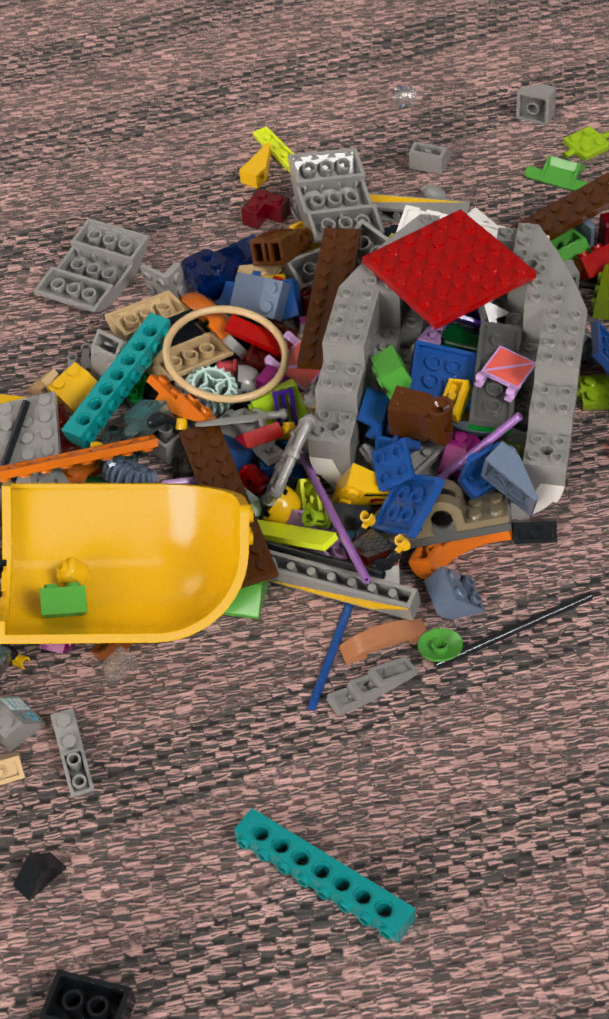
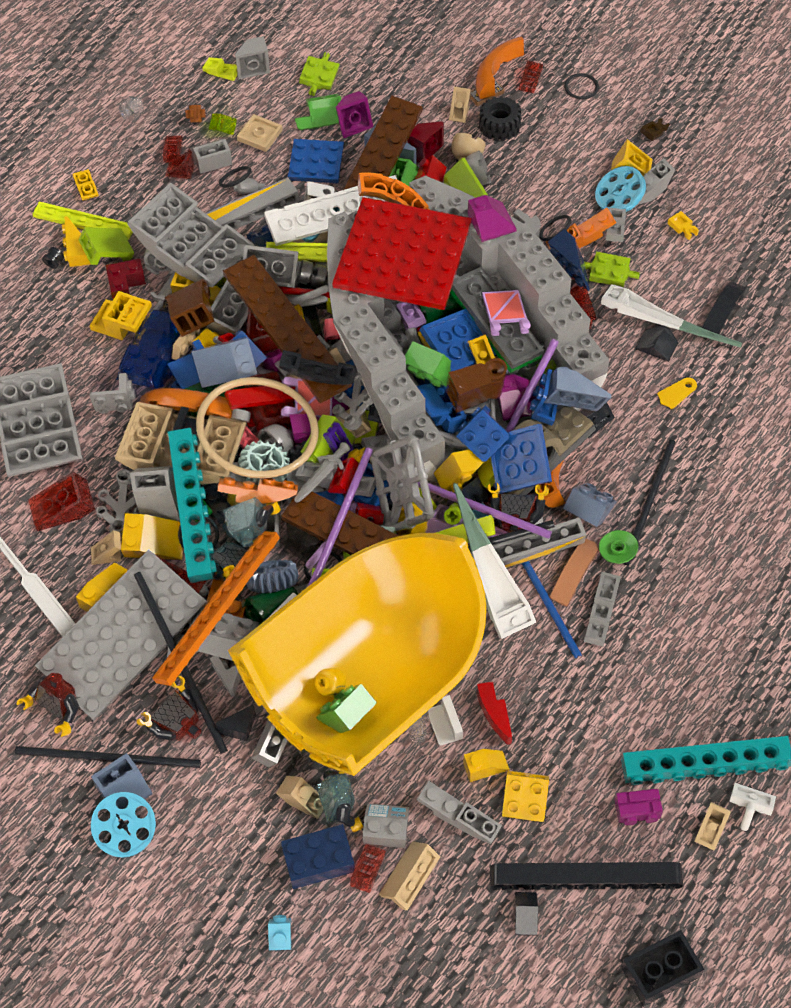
camera: 45 degrees left, 10 degrees up
(52, 334) = (62, 502): none -> clear red slope
(122, 889) = (591, 875): none -> black beam
(135, 732) = (484, 763): none -> yellow slope
(140, 781) = (525, 796): none -> yellow bracket
(145, 679) = (445, 722): none -> white panel
(190, 698) = (494, 711): none -> red slope
(221, 864) = (638, 806): none -> magenta brick
(230, 228) = (120, 315): none -> yellow bracket
(231, 452) = (341, 515): none -> medium lavender piece
(232, 168) = (53, 257): none -> black wheel
(263, 930) = (712, 826): none -> tan slope
(274, 174) = (105, 243): none -> lime panel
(290, 614) = (503, 598): none -> white plate
(304, 329) = (317, 371): none -> black slope
(313, 132) = (85, 185): none -> yellow slope
(325, 938) = (752, 800): none -> white plate
(399, 156) = (181, 166): none -> clear red slope
(404, 141) = (174, 150): none -> clear red slope
(429, 182) = (237, 181): none -> black tyre
(449, 123) = (195, 113): none -> dark orange gear
(464, 141) = (222, 123): none -> clear neon green panel
(487, 162) = (259, 133): none -> tan plate
(488, 213) = (389, 190): none -> orange brick
(507, 102) = (218, 68): none -> neon yellow slope
(511, 204) = (316, 161): none -> blue plate
(553, 279) = (490, 218): none -> magenta slope
(574, 177) = (354, 114): none -> magenta slope

